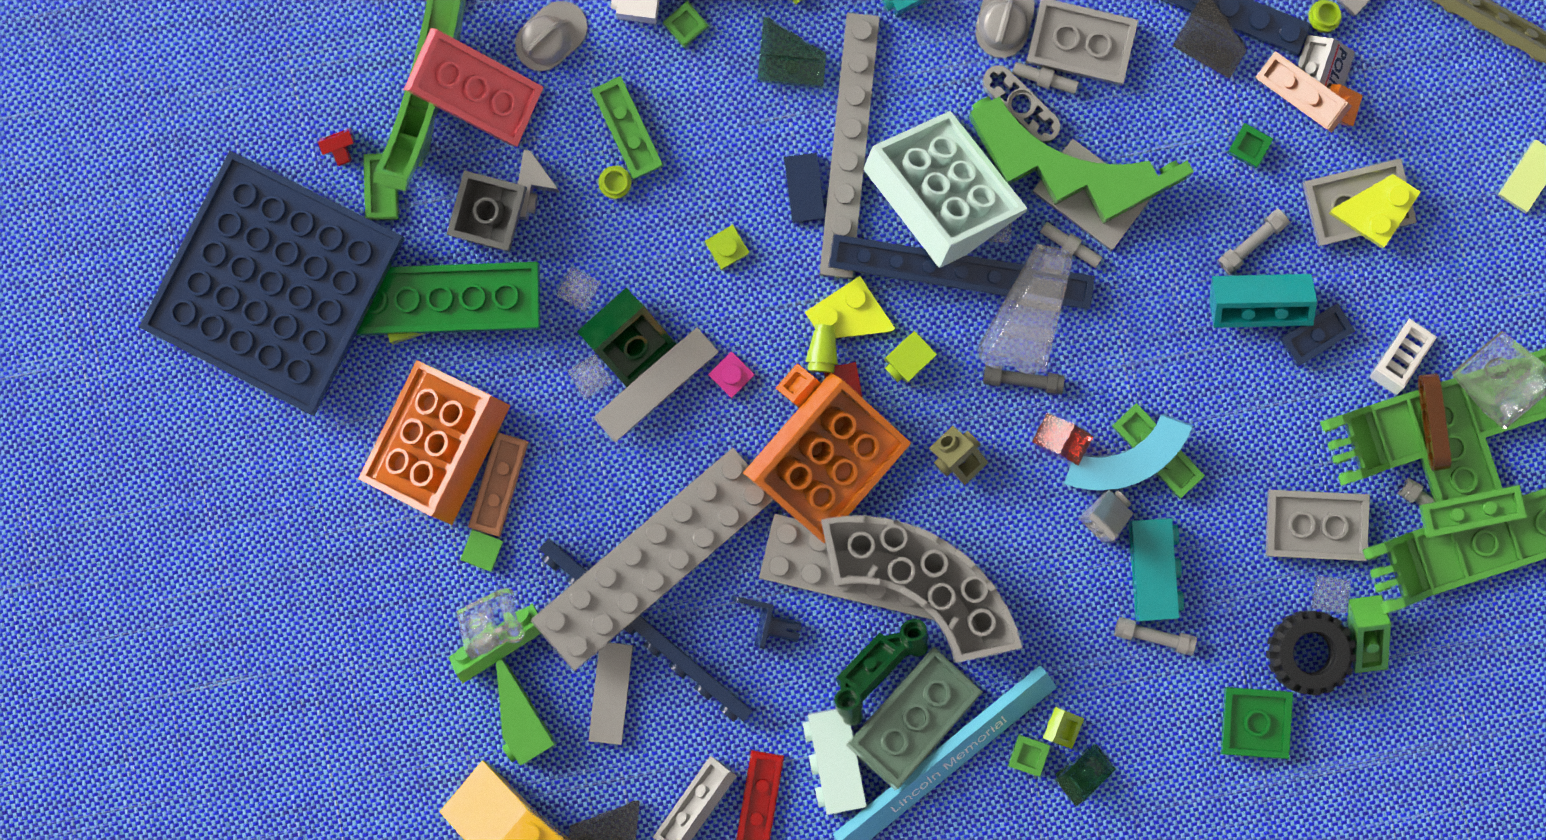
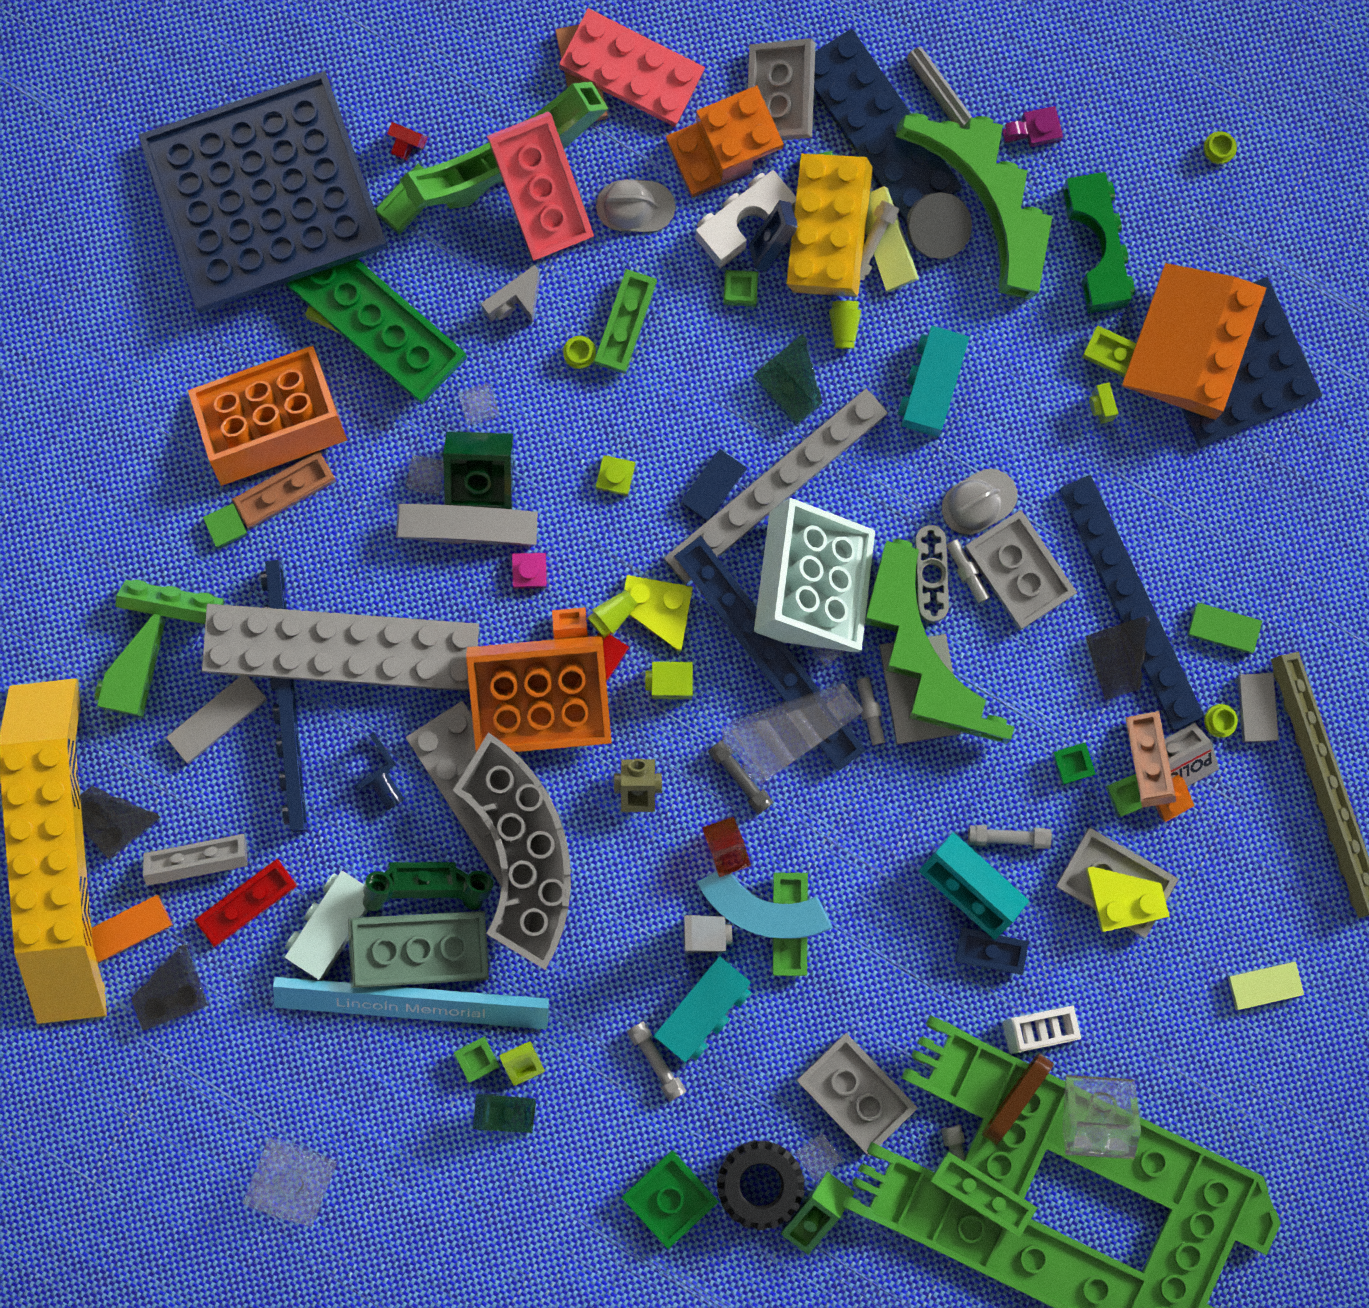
camera: 40 degrees right, 5 degrees down
(479, 625) = (168, 575): clear plate -> none
(486, 211) = (464, 281): dark grey slope -> none
(1307, 134) = (1125, 795): none -> bright green plate

